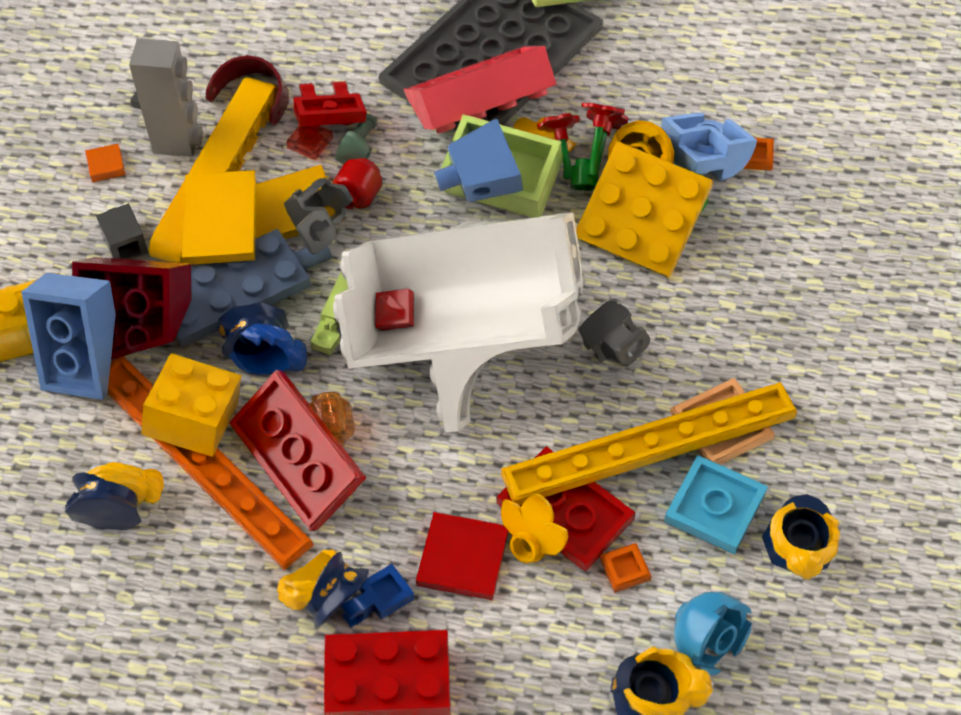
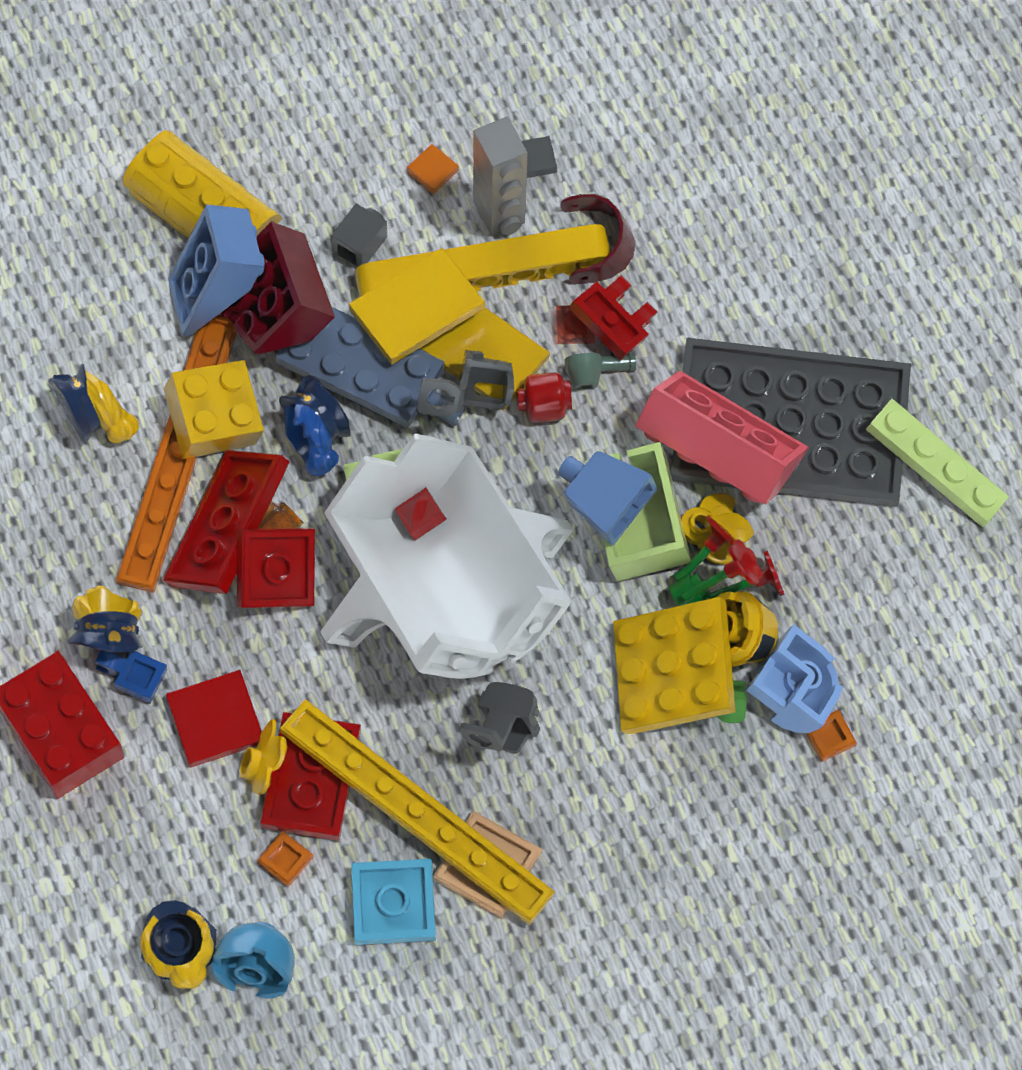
camera: 55 degrees right, 10 degrees up
(367, 431) = (275, 567): none -> red tile
(802, 536) = (399, 993): piece -> none

